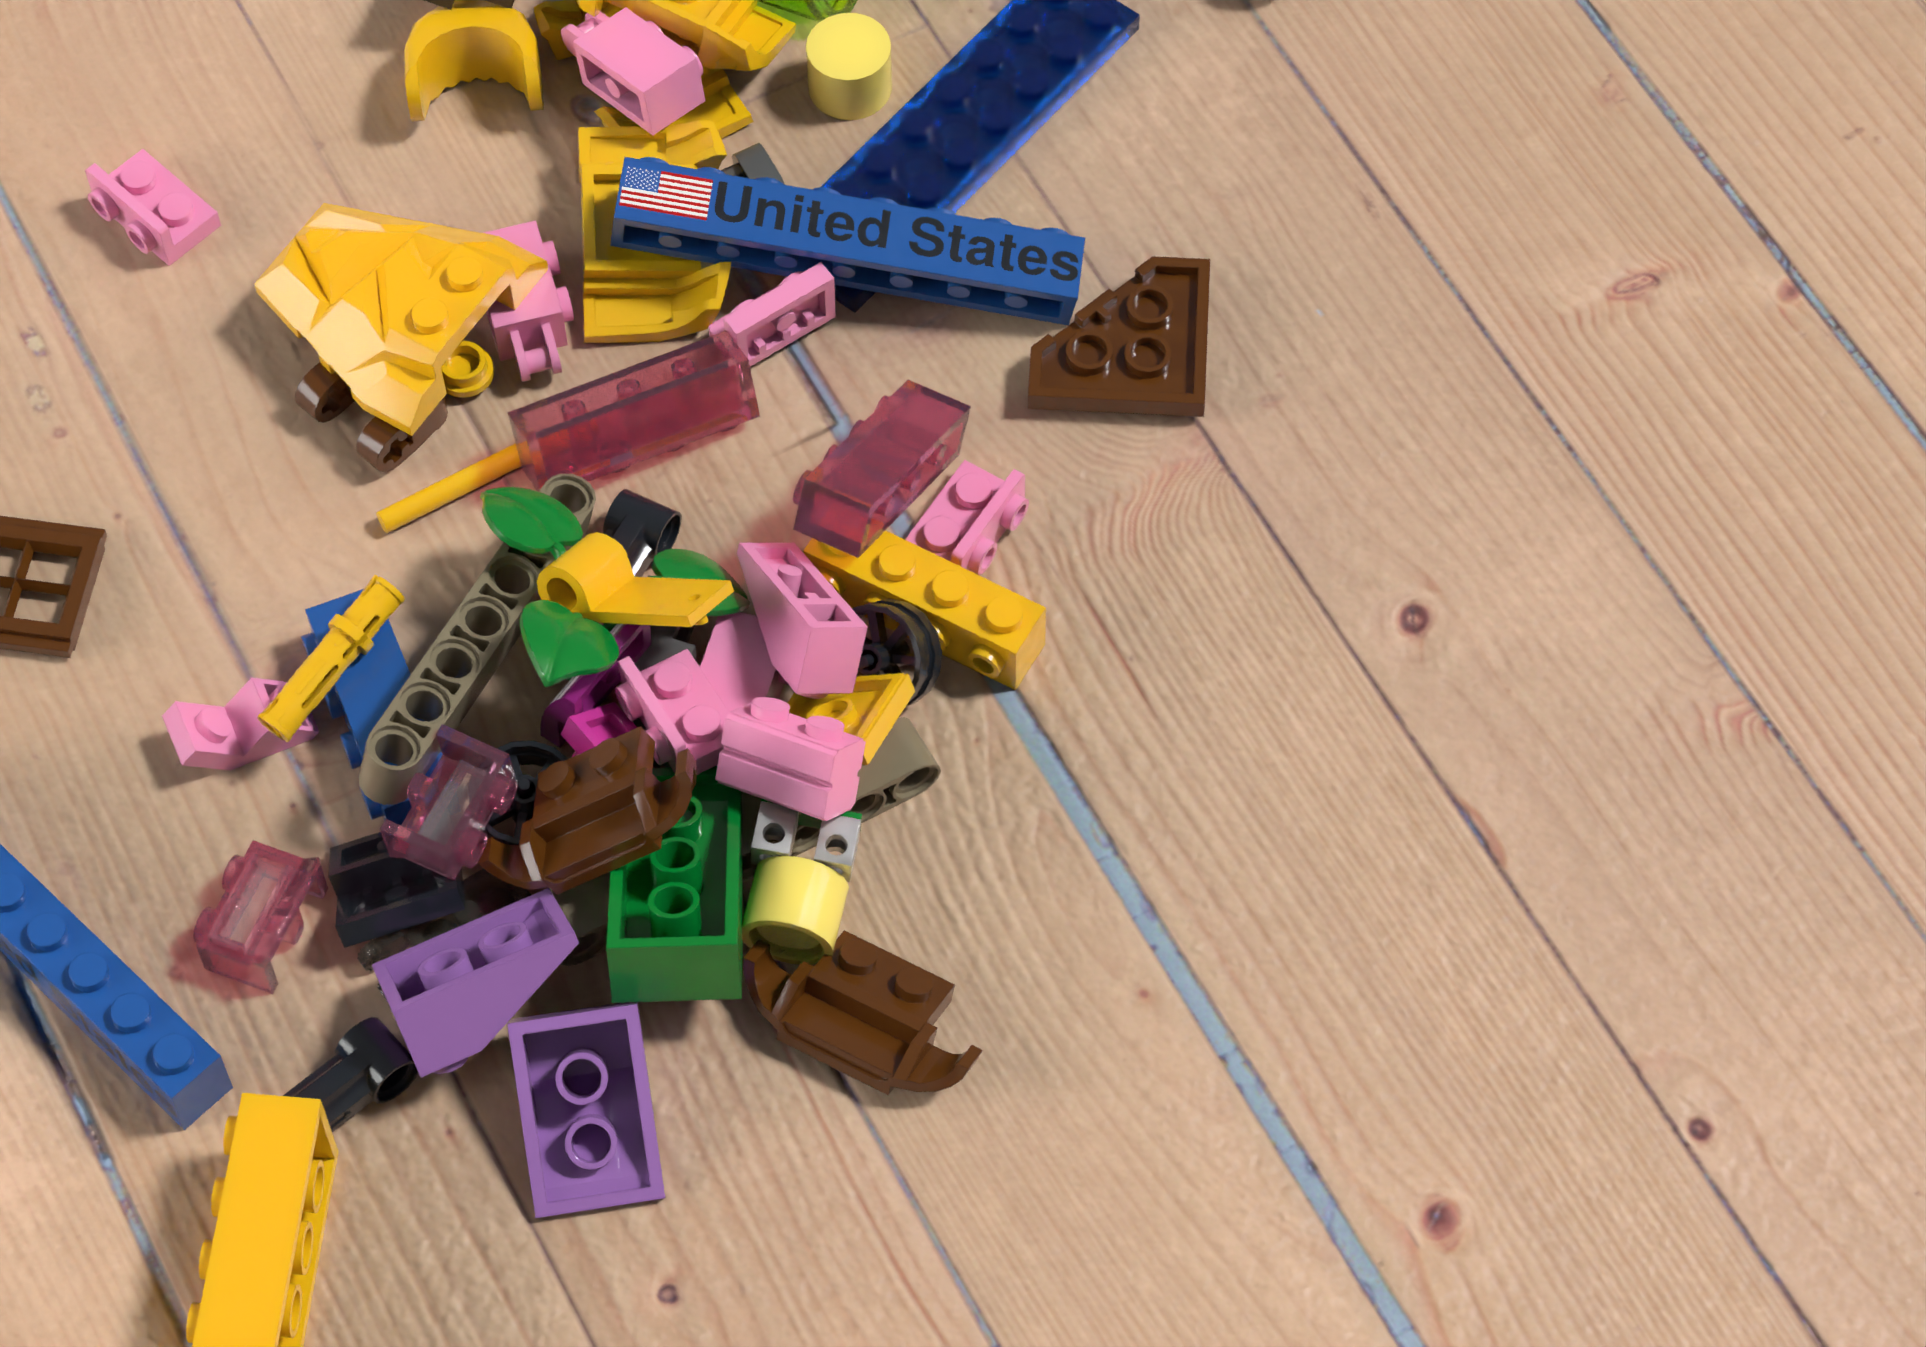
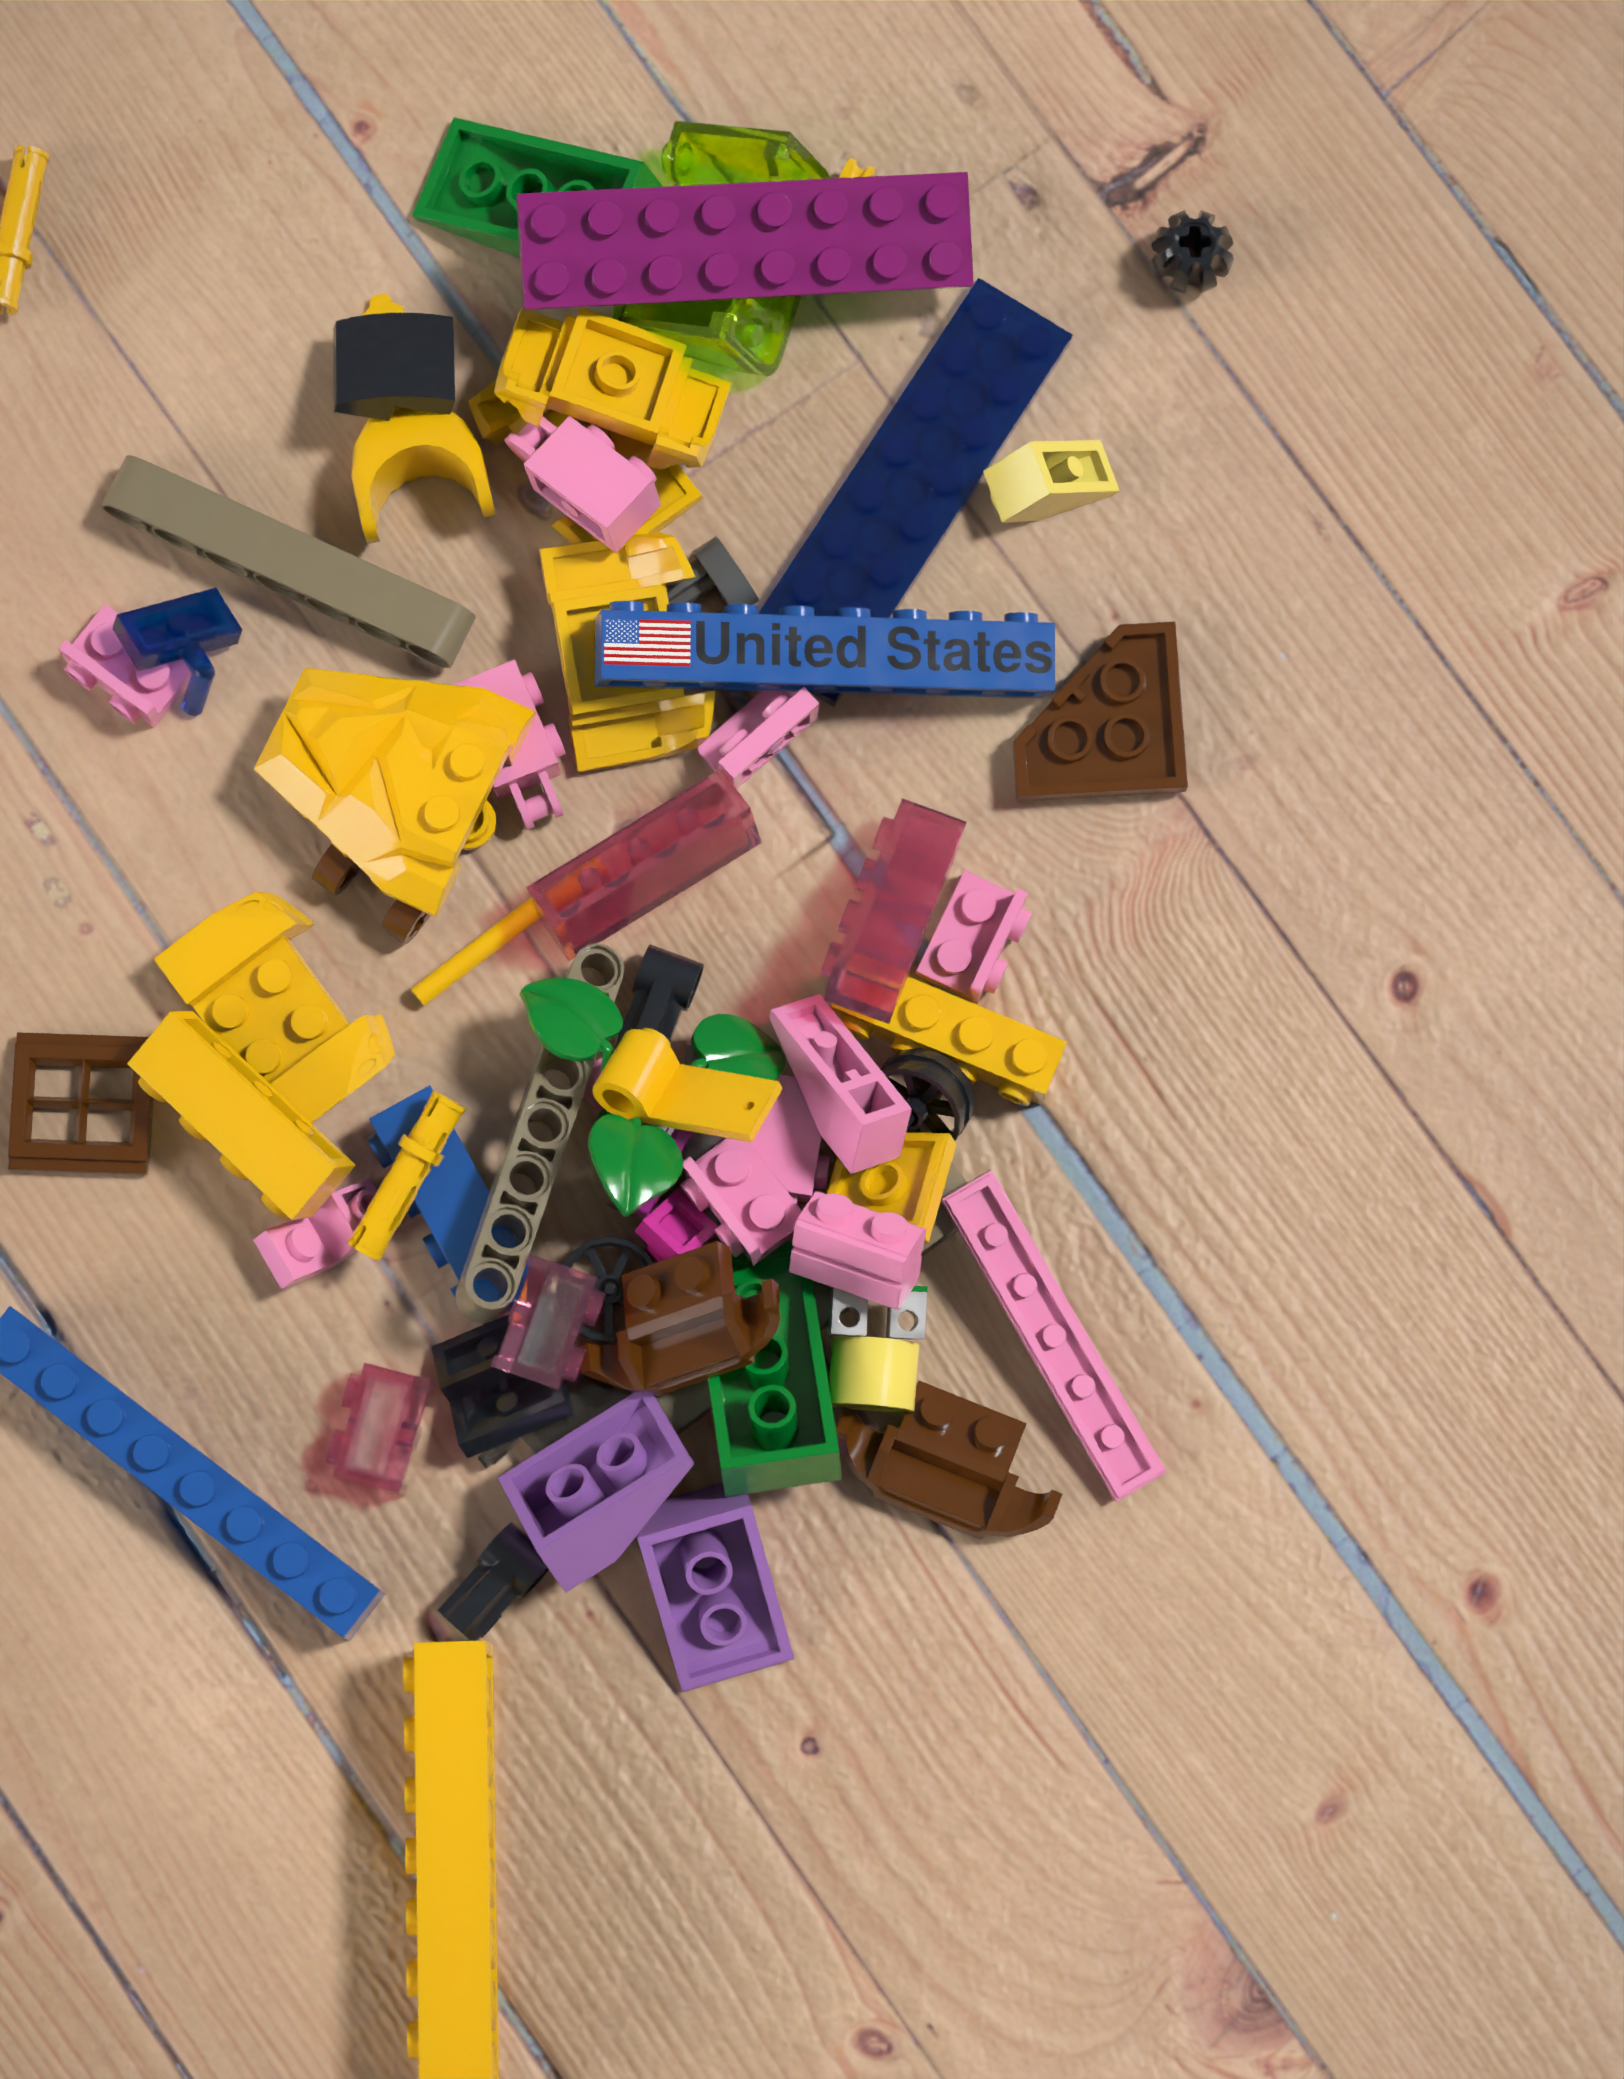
camera: 10 degrees left, 20 degrees up
(172, 589) = (240, 1116): none -> yellow brick
(209, 170) = (178, 631): none -> clear blue plate
(228, 511) = (272, 1006): none -> yellow piece
(331, 129) = (288, 561): none -> dark tan beam
(849, 66) = (793, 432): light yellow piece -> none
(995, 897) = (1053, 1335): none -> bright pink tile
(1098, 128) = (1049, 479): none -> light yellow slope

